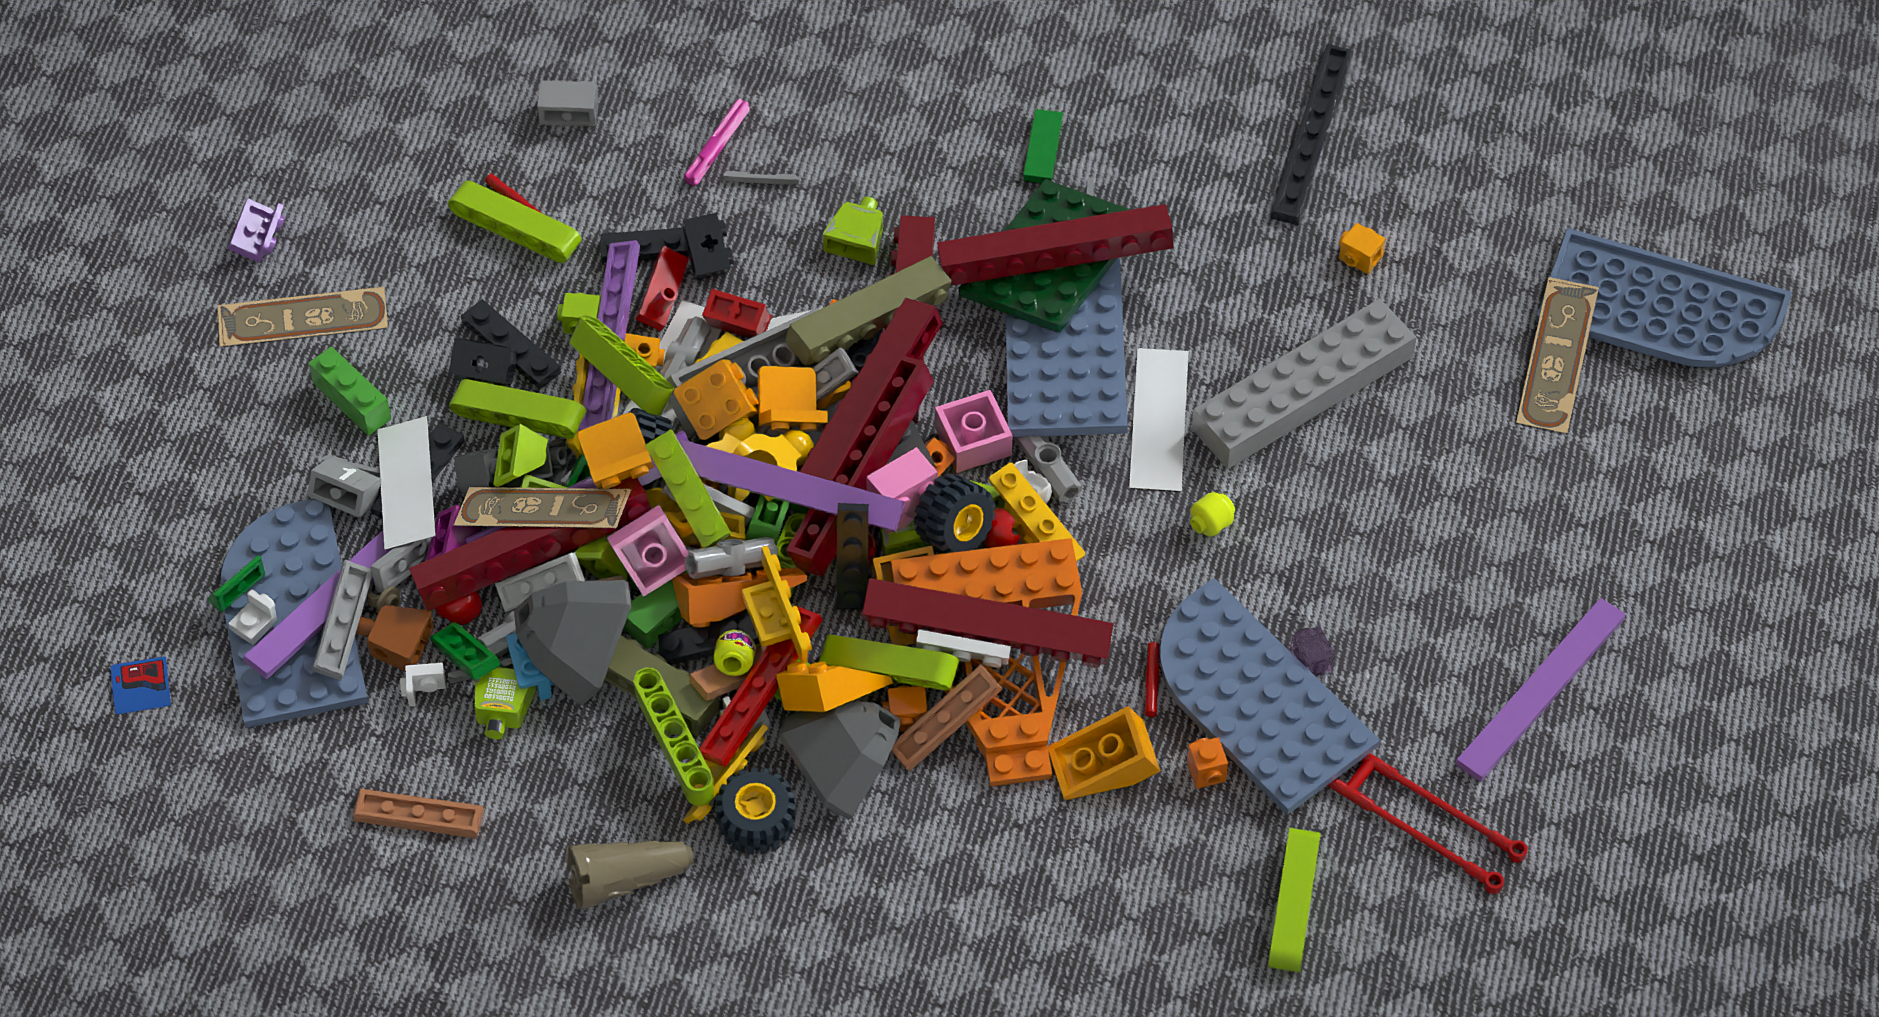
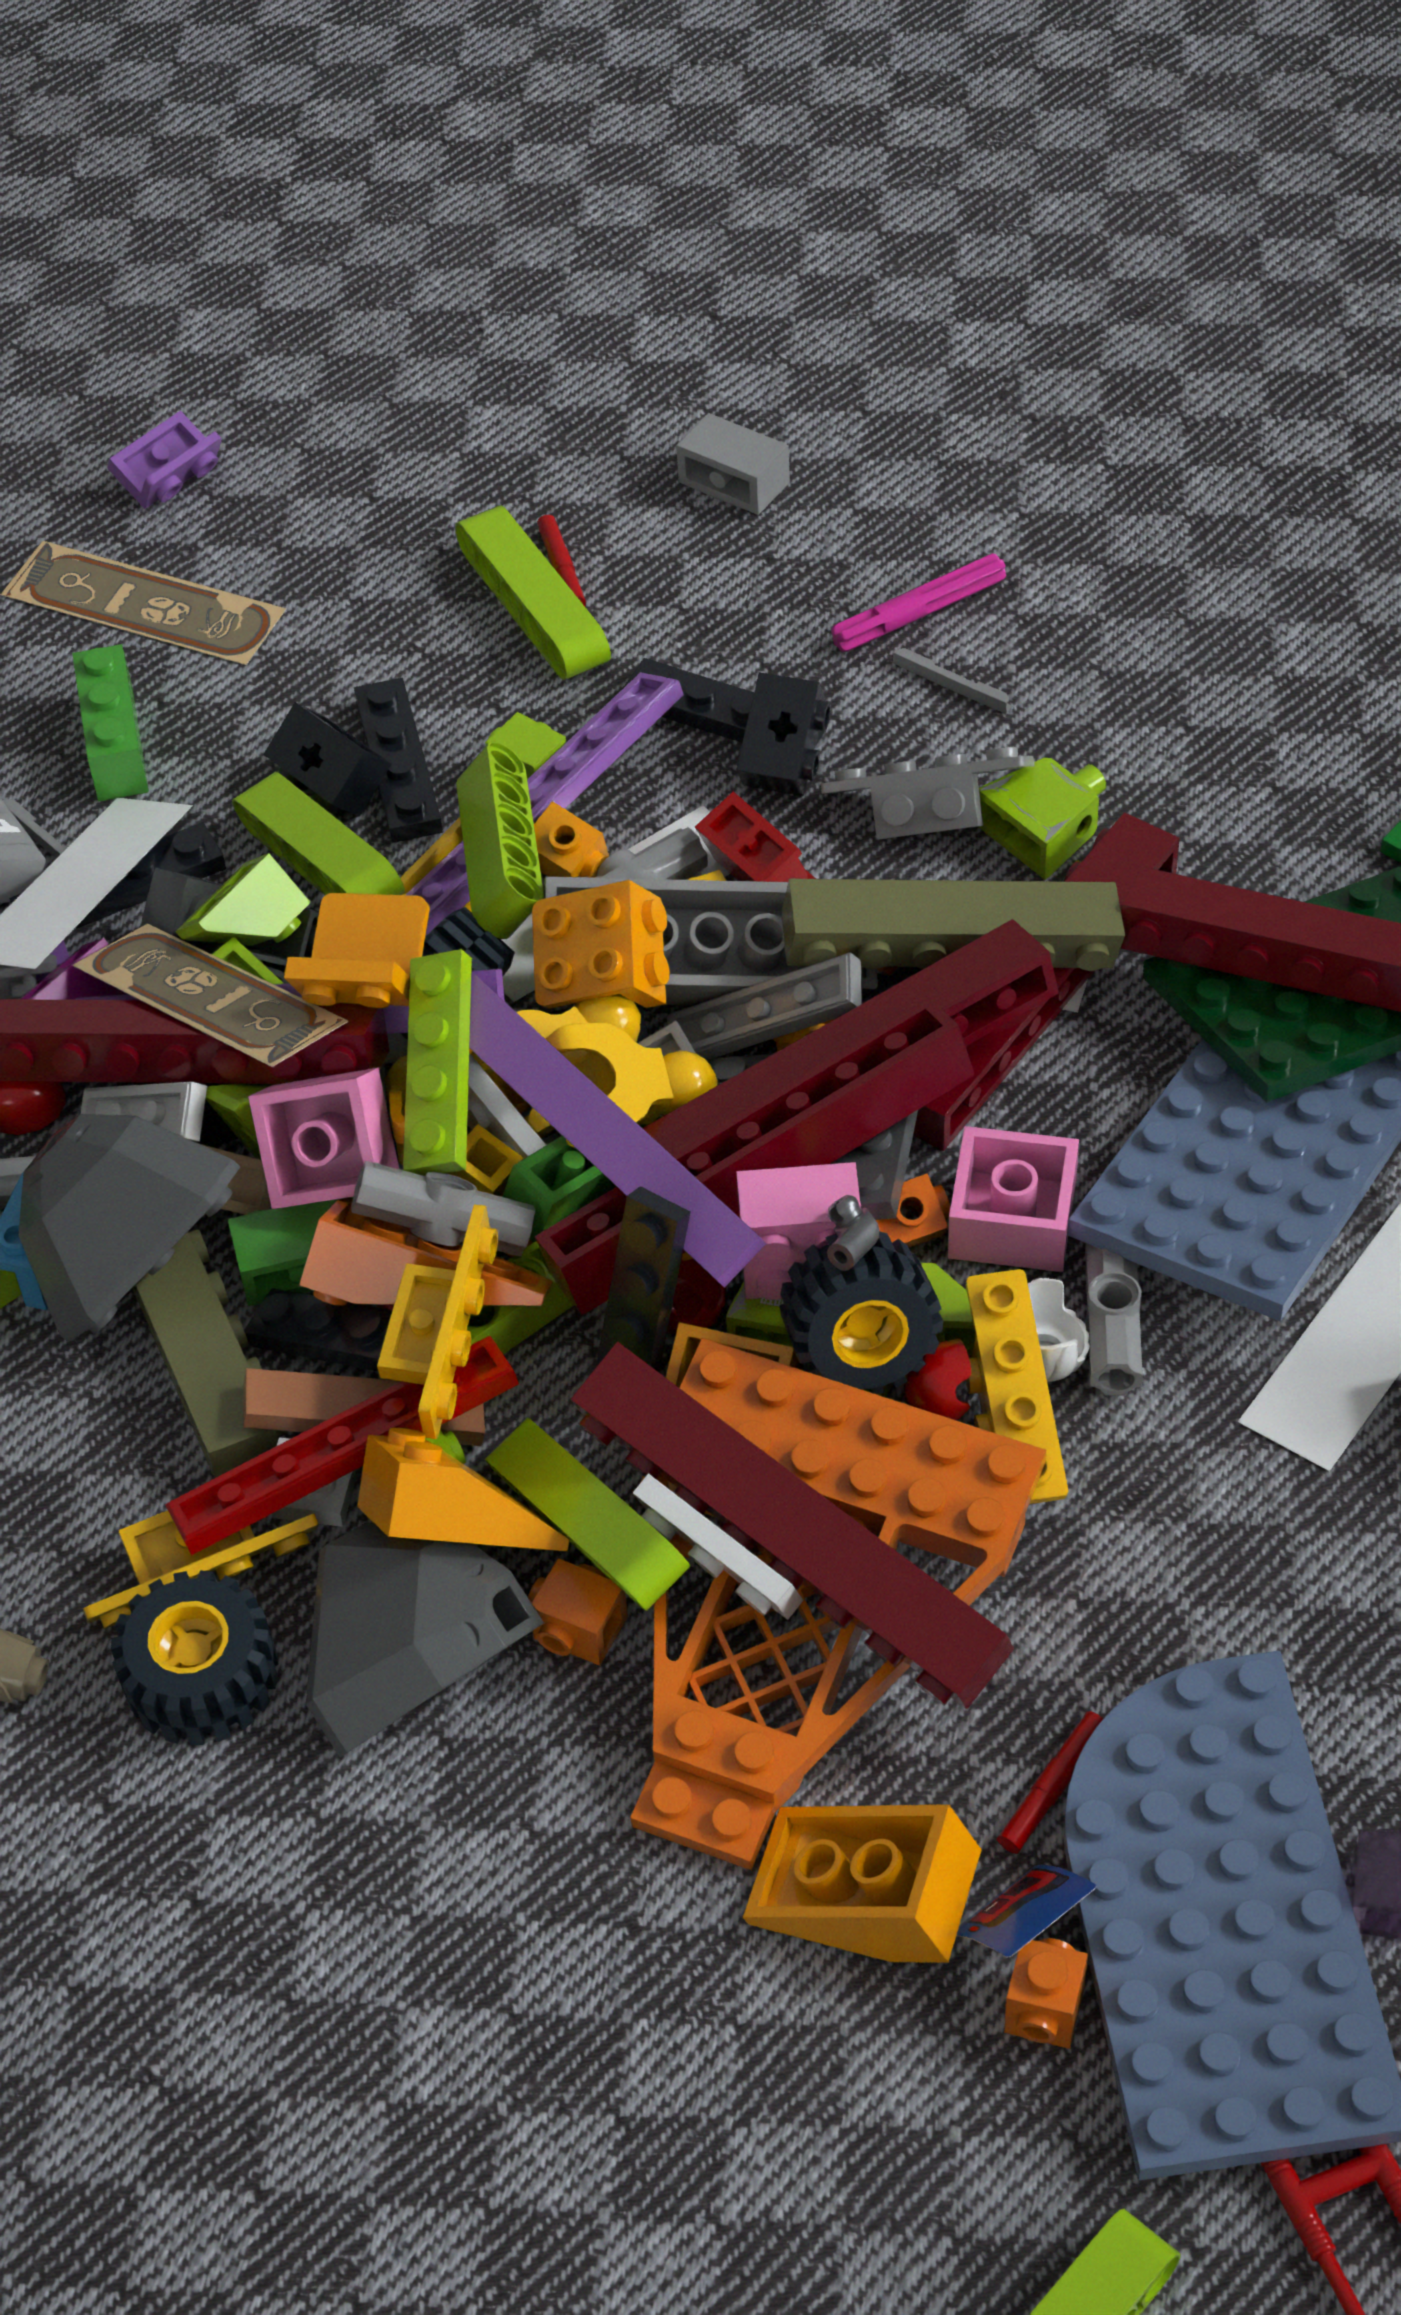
camera: 35 degrees right, 5 degrees down
(662, 288) = (676, 773): red piece -> none
(673, 748) = (141, 1482): lime beam -> none
(734, 653) = (336, 1368): neon yellow head -> none
(788, 399) = (719, 1000): light orange bracket -> none
(798, 248) = (927, 799): none -> light grey bracket
(942, 478) = (855, 1230): none -> flat silver arm
(945, 717) = (619, 1658): nougat tile -> none
(1179, 733) = (1026, 1908): none -> blue sticker
(1212, 514) = (1352, 1535): neon yellow head -> none

